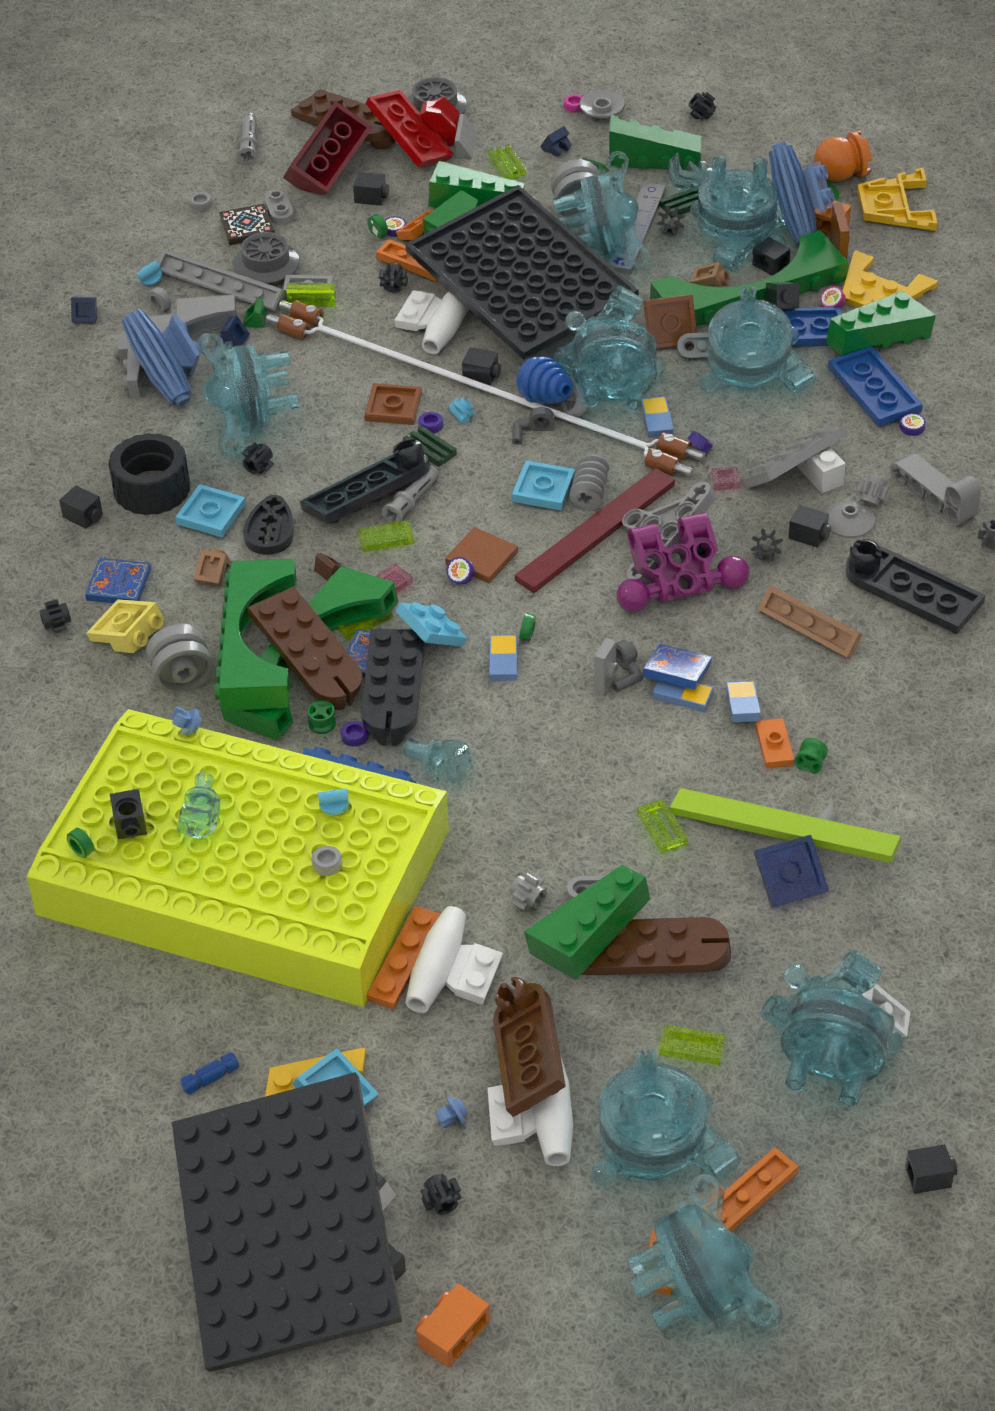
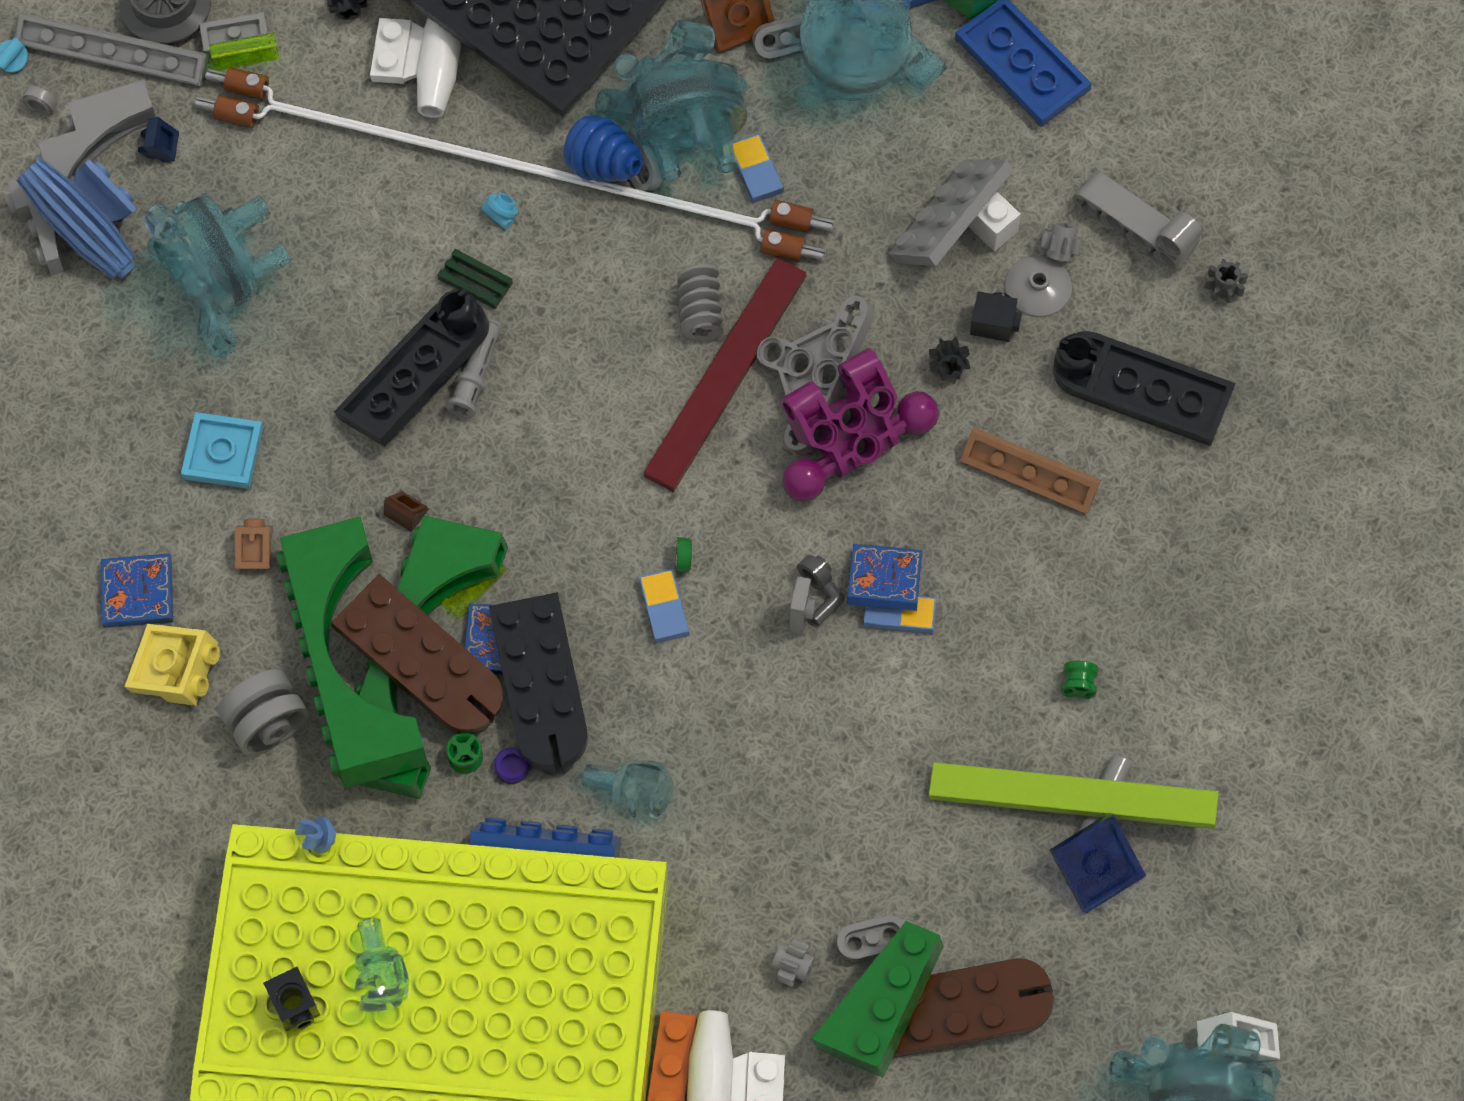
camera: 15 degrees left, 20 degrees up
(55, 615) = (75, 669): black gear -> none
(80, 842) = (246, 1055): green tile -> none
(81, 507) = (51, 482): black brick -> none
(149, 493) = (135, 448): black tyre -> none
(255, 315) = (177, 99): green slope -> none
(257, 458) = (258, 352): black gear -> none
(258, 520) = (323, 458): black piece -> none
(327, 860) = (554, 1007): light grey tile -> none
(333, 801) = (538, 919): medium azure plate -> none
(385, 536) = (460, 441): clear neon green tile -> none
(393, 404) = (406, 216): dark orange tile -> none
(398, 576) = (491, 510): clear pink tile -> none
(431, 421) = (465, 237): dark purple tile -> none
(431, 624) = (563, 582): medium azure plate -> none
(460, 570) = (573, 481): tile -> none
(481, 366) = (506, 133): black brick -> none
(486, 552) = (591, 446): dark orange tile -> none
(539, 420) = (606, 208): dark grey plate -> none
(543, 485) = (641, 317): medium azure plate -> none
(670, 842) = (943, 845): clear neon green tile -> none
(700, 441) = (823, 203): dark purple tile -> none
(725, 478) = (868, 253): clear pink tile -> none
(743, 701) = (978, 613): tile -> none
(774, 743) = (1029, 666): orange plate -> none
(912, 424) = (1083, 114): tile -> none

